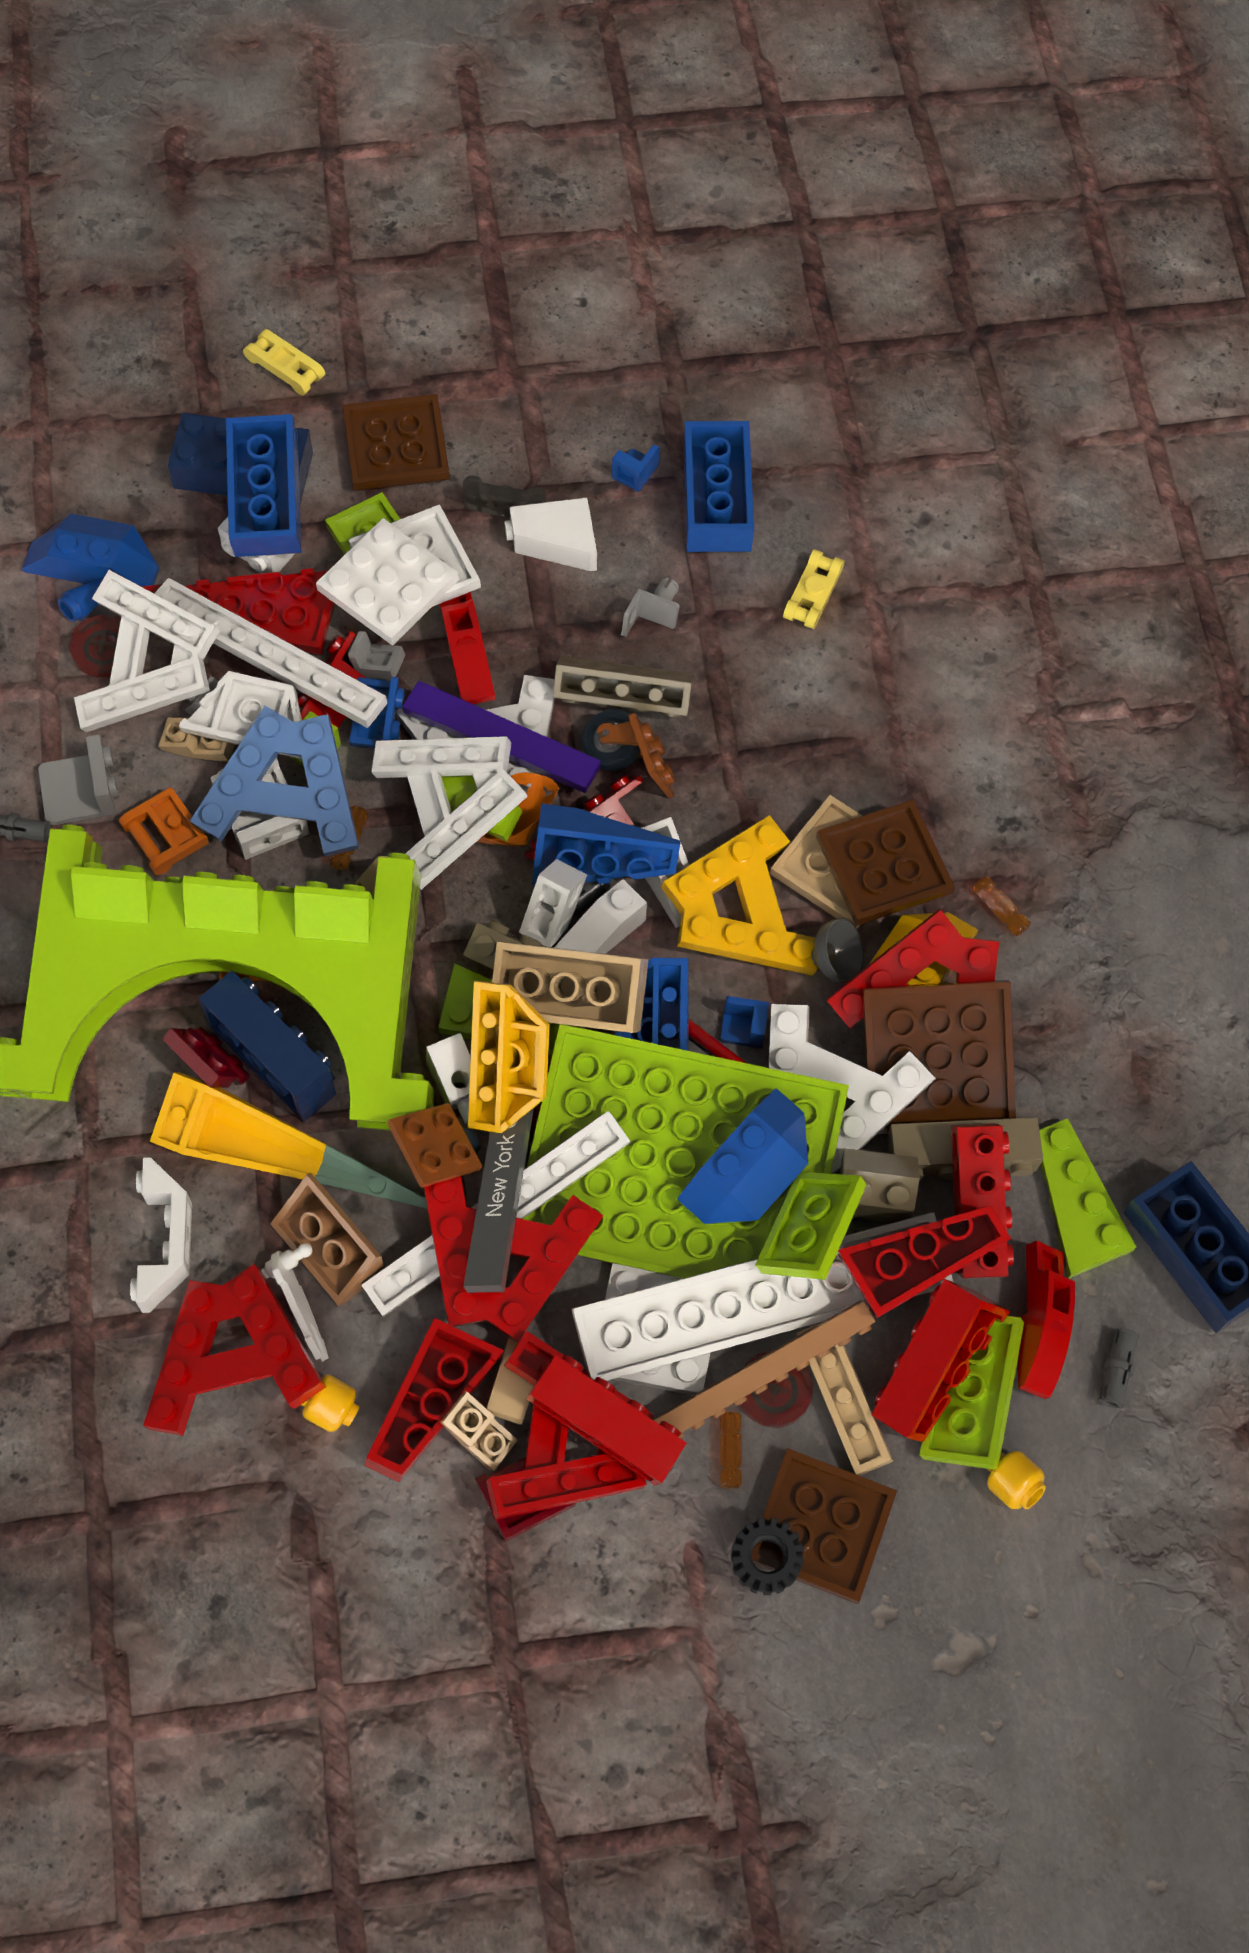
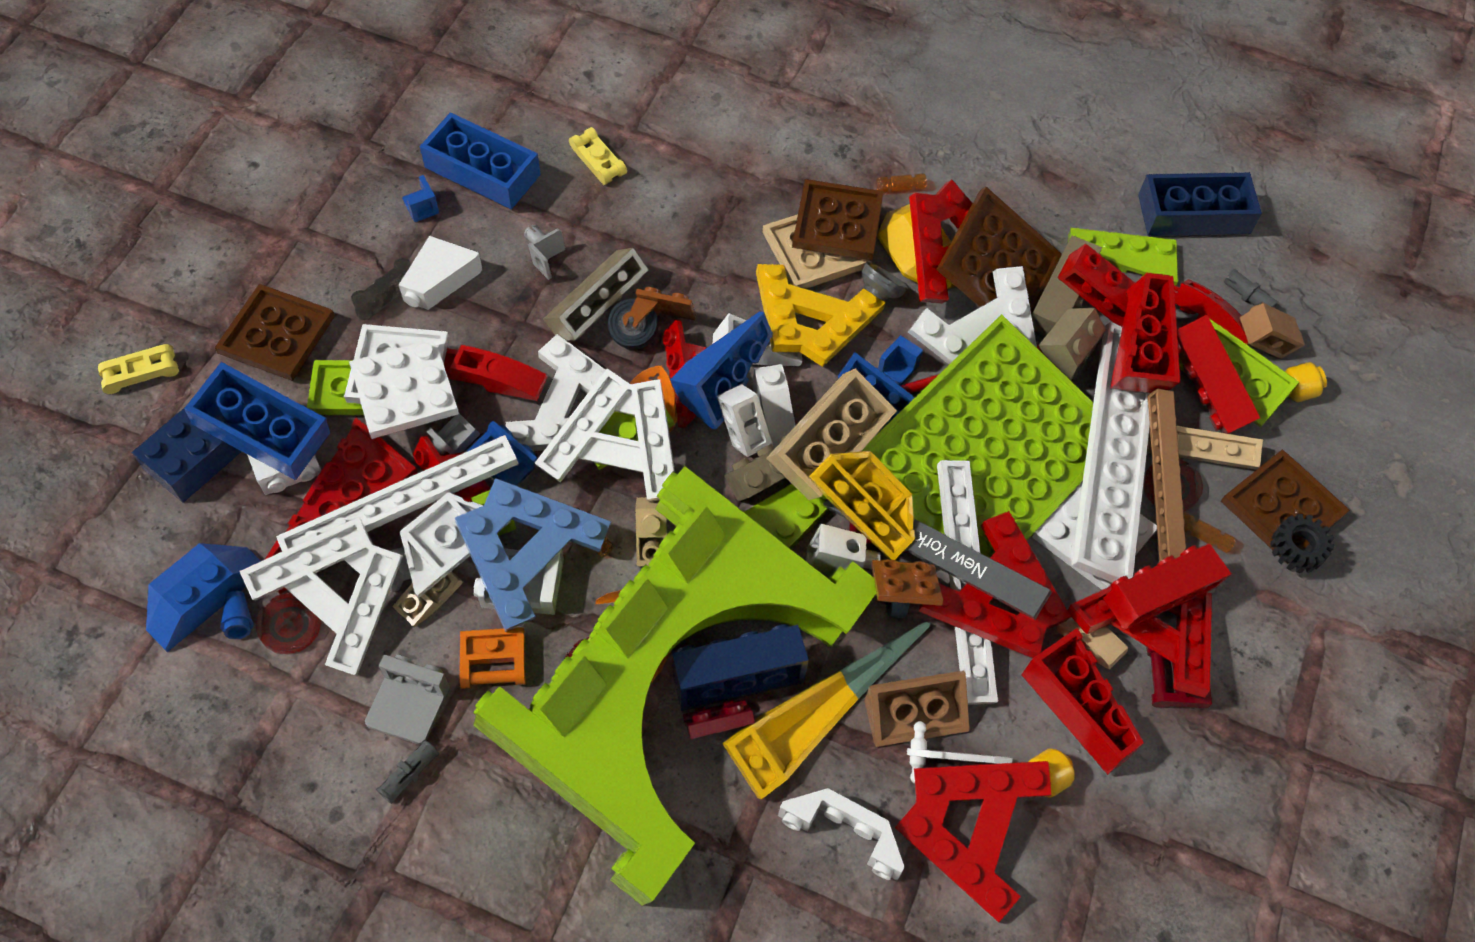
camera: 60 degrees left, 5 degrees down
(478, 1431) = (1126, 678): tan slope -> none
(527, 746) = (570, 392): dark purple tile -> none
(751, 1165) = (1024, 402): blue wedge -> none
(811, 1225) = (1096, 384): lime plate -> none
(1058, 1407) = (1272, 330): none -> medium nougat brick

